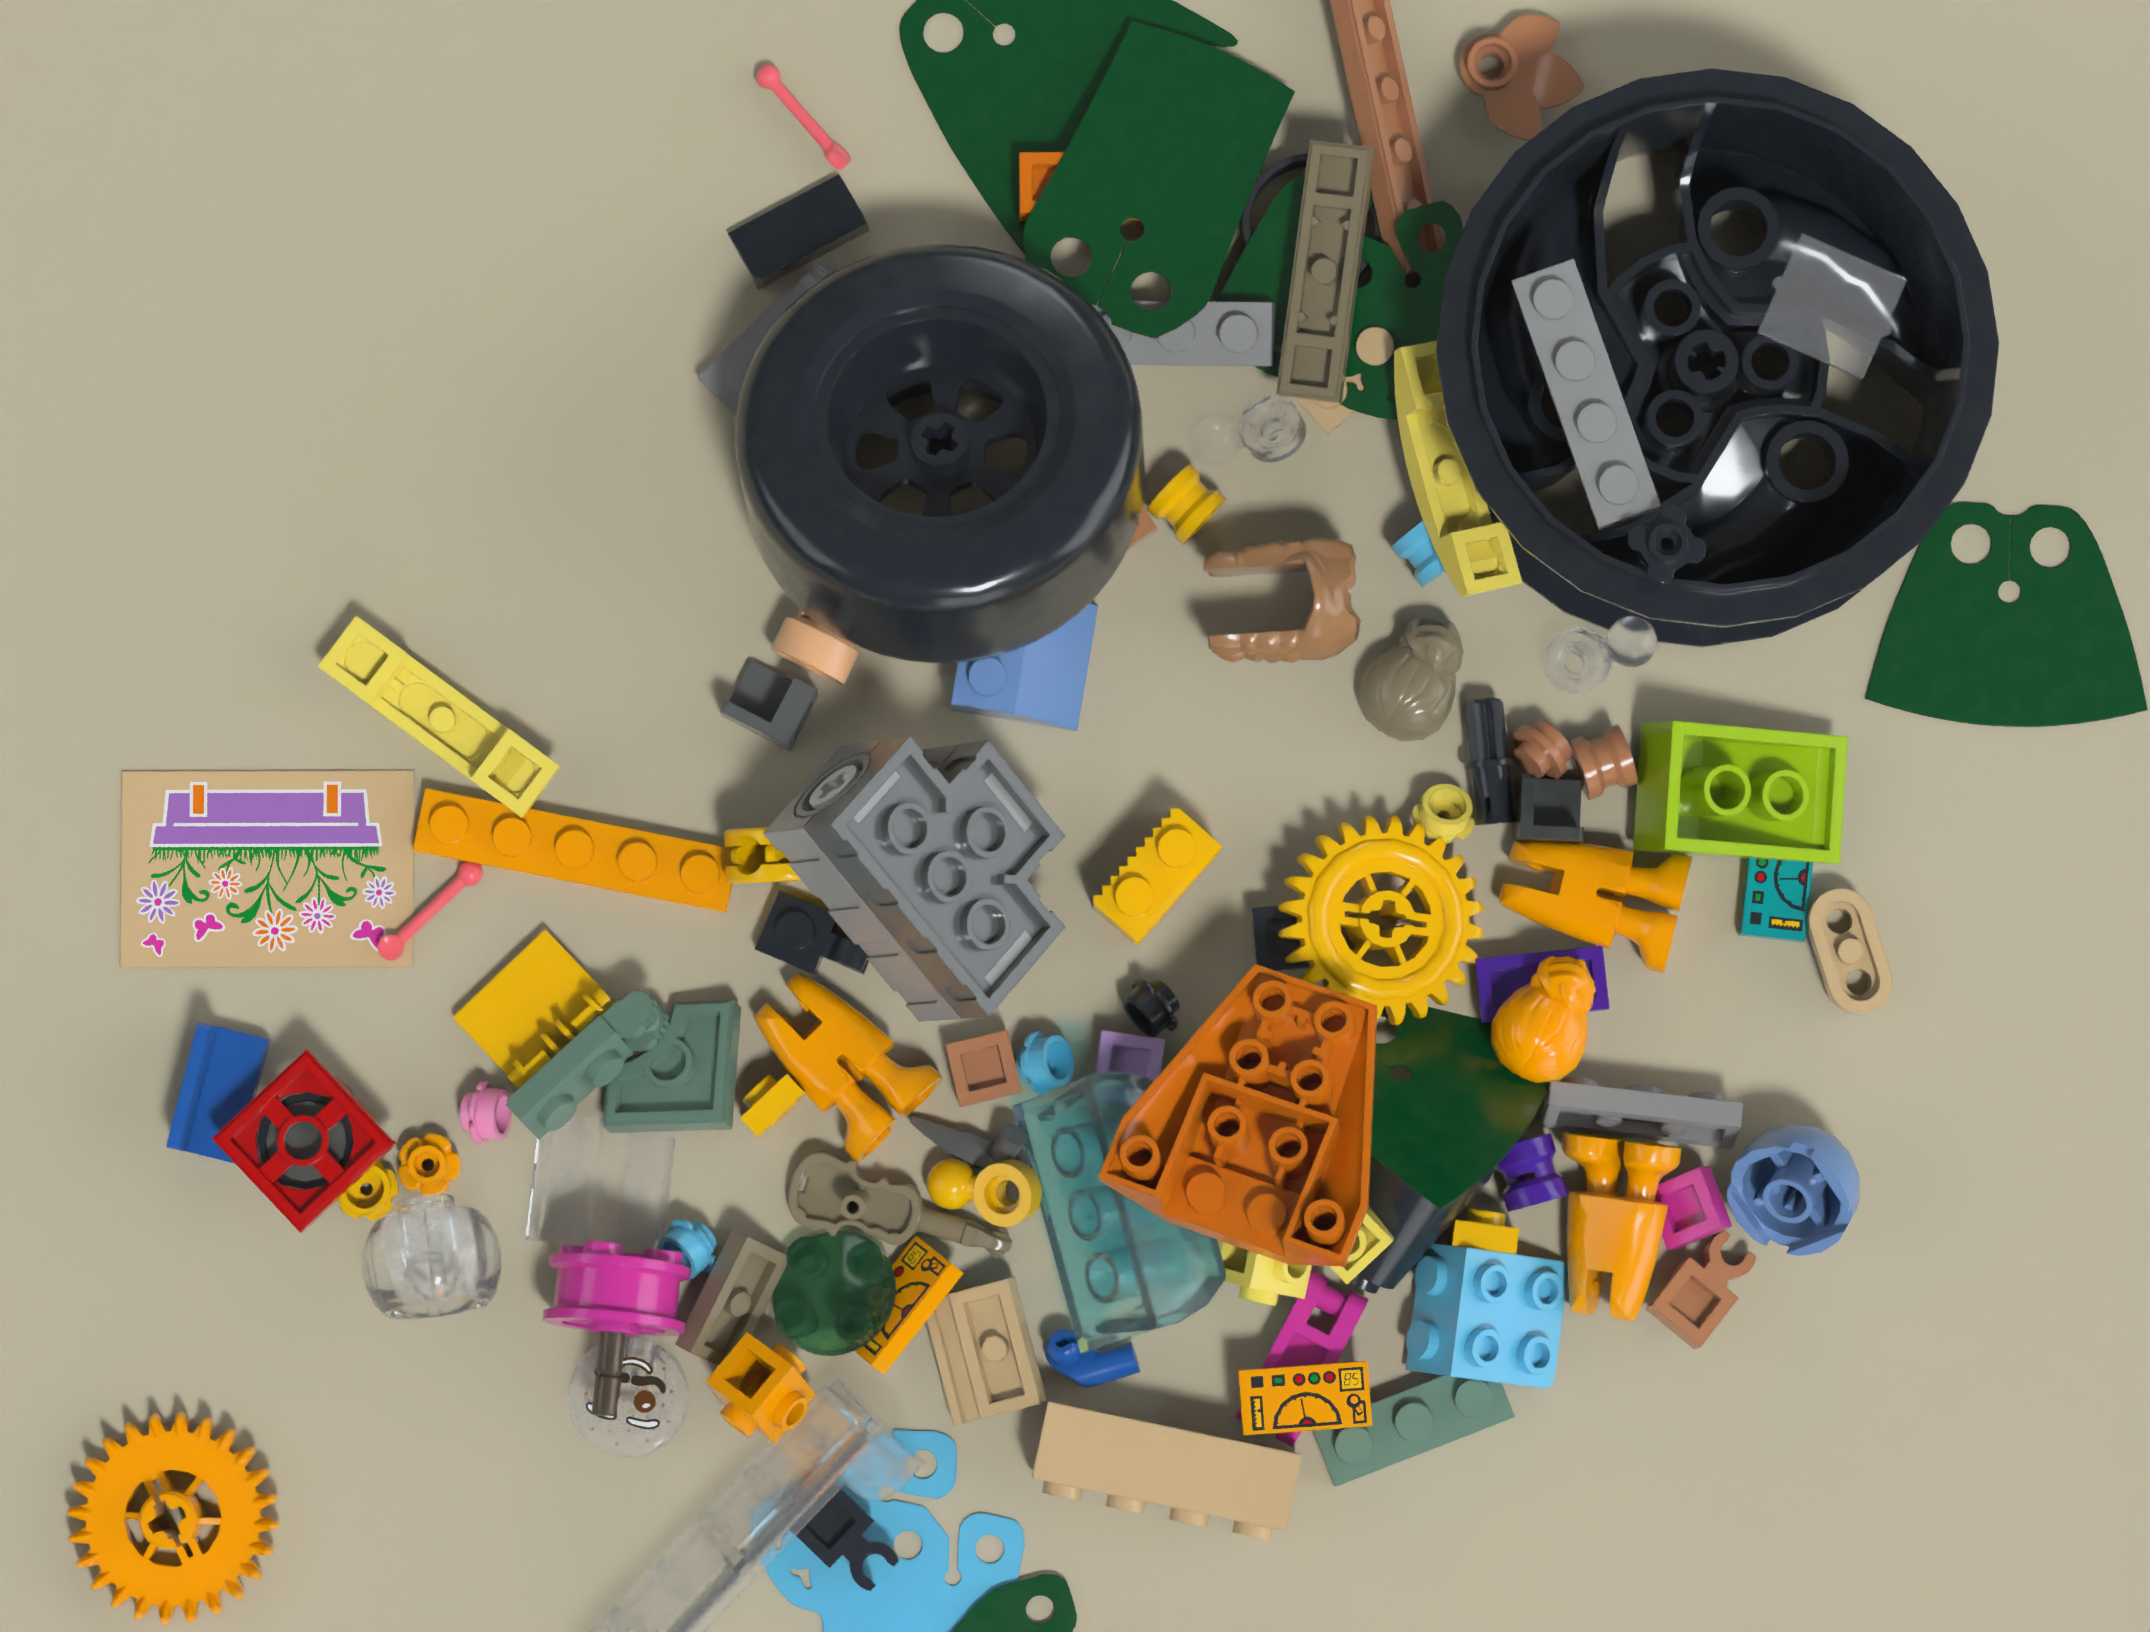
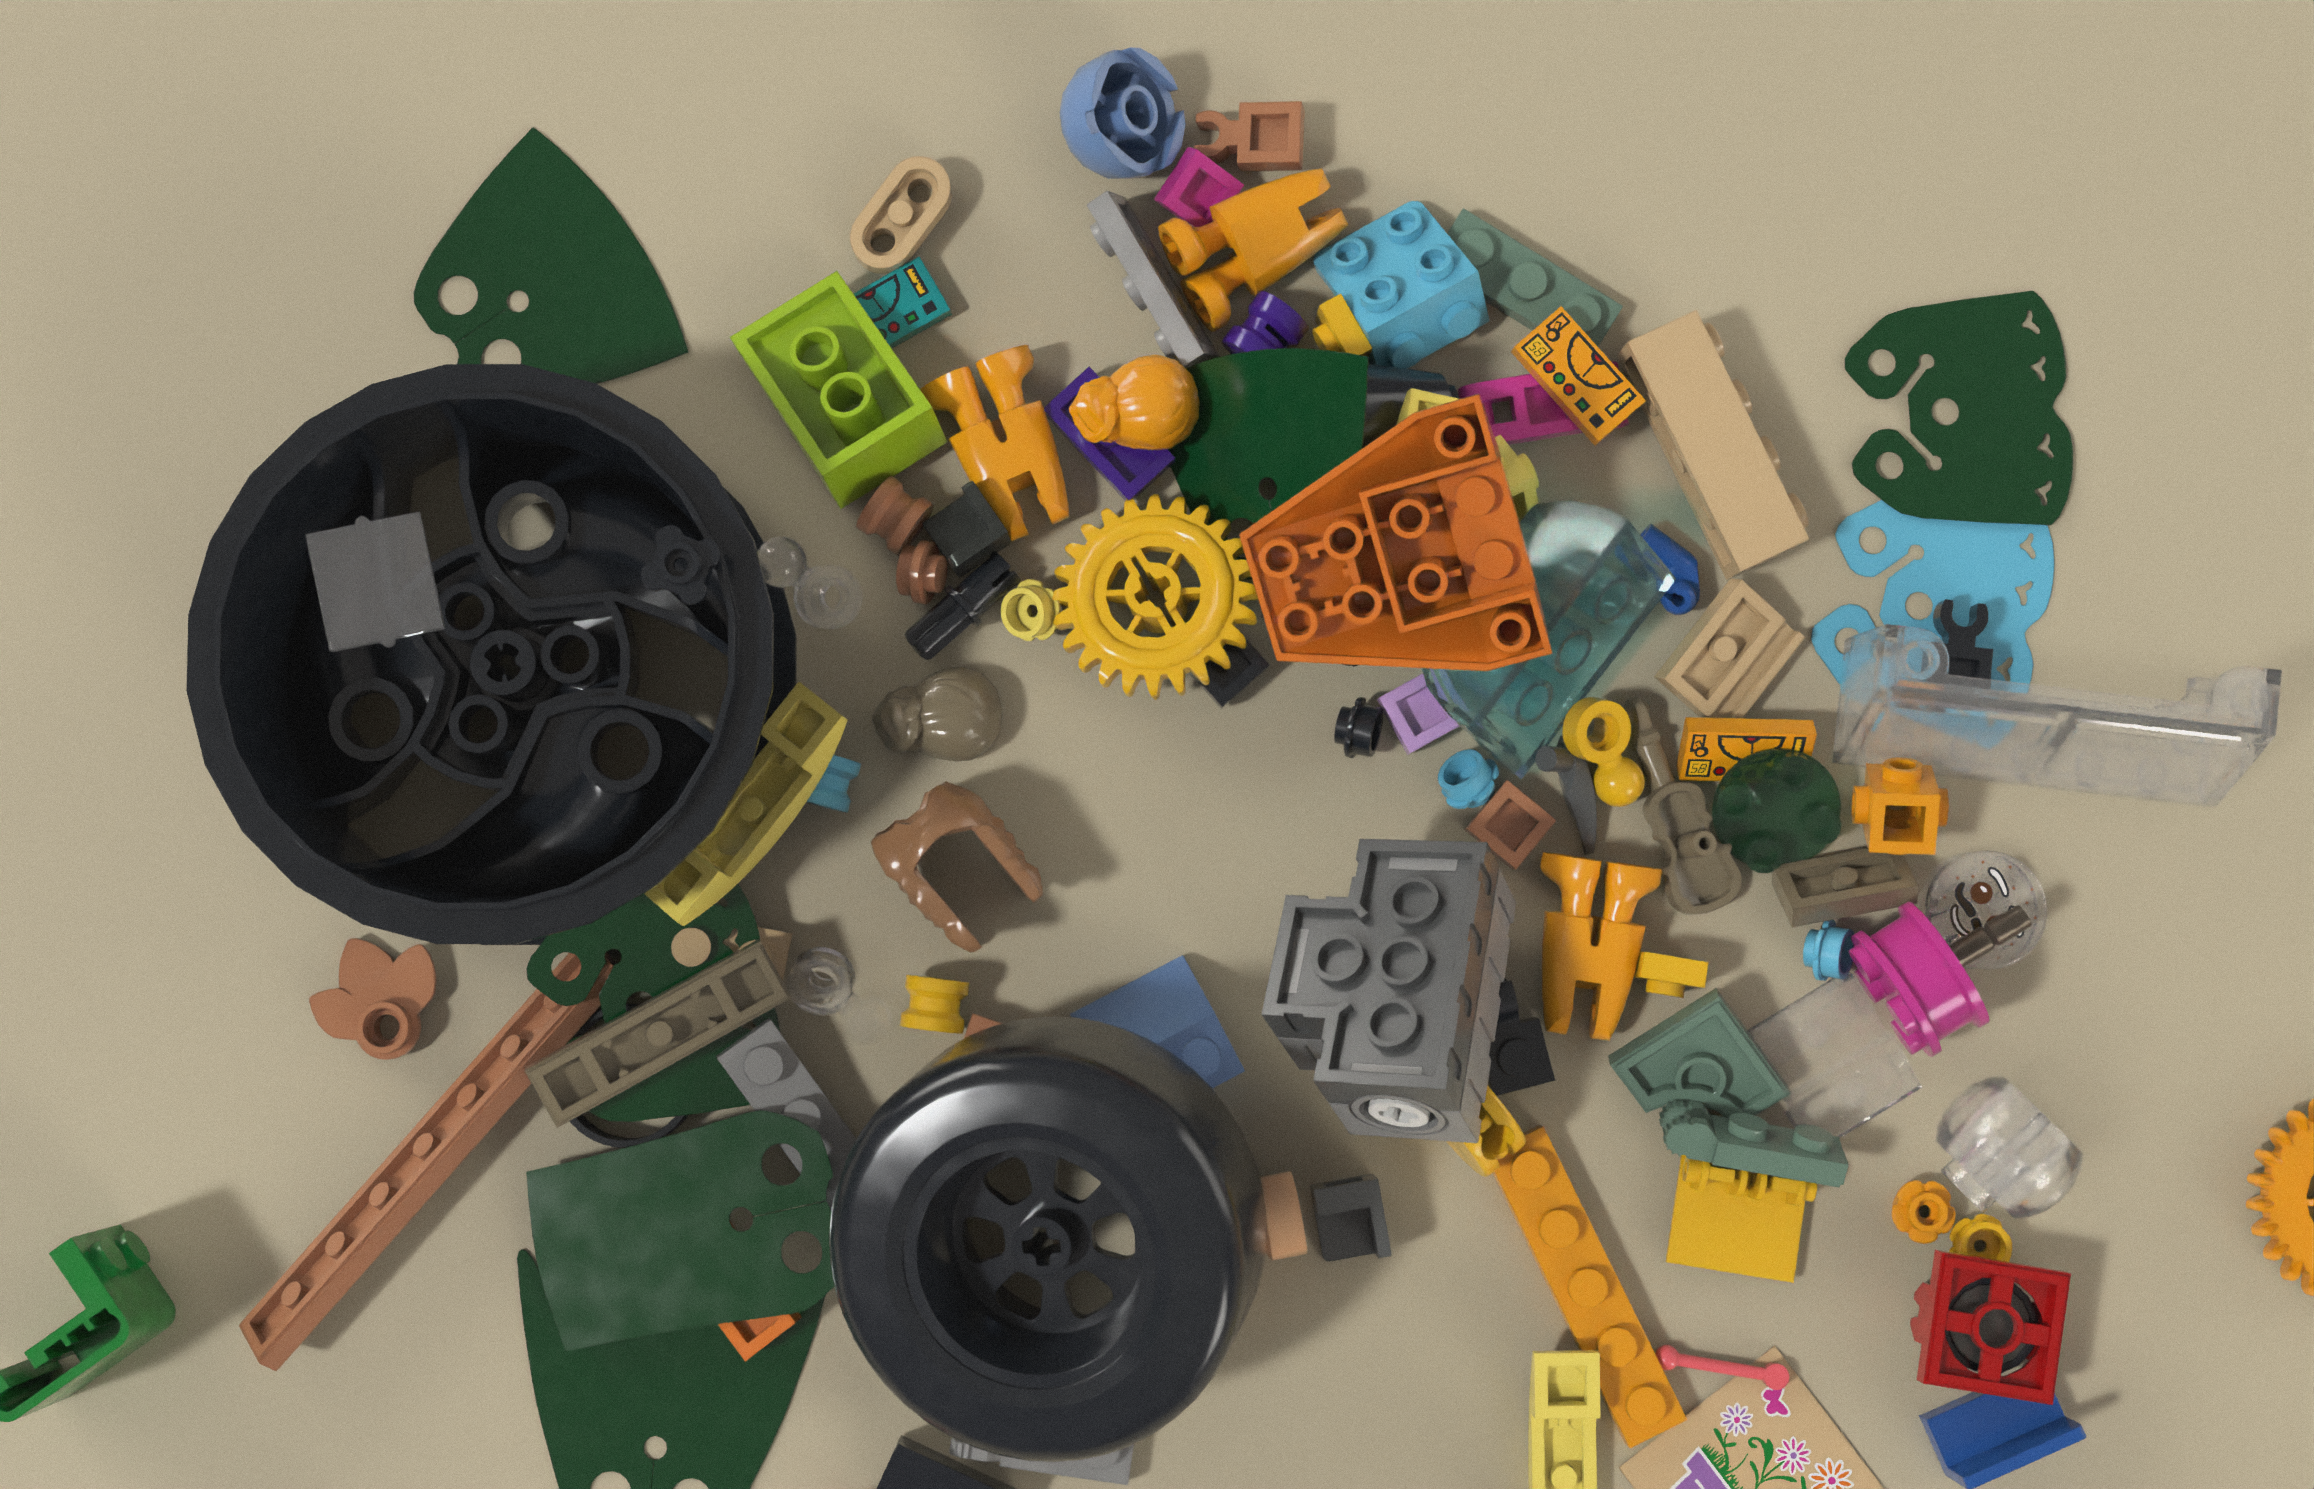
camera: 130 degrees left, 0 degrees up
(486, 1113) = (1850, 1201): bright pink plate -> none
(1156, 875) = (1256, 801): yellow brick -> none
(1586, 394) = (601, 731): light grey plate -> none

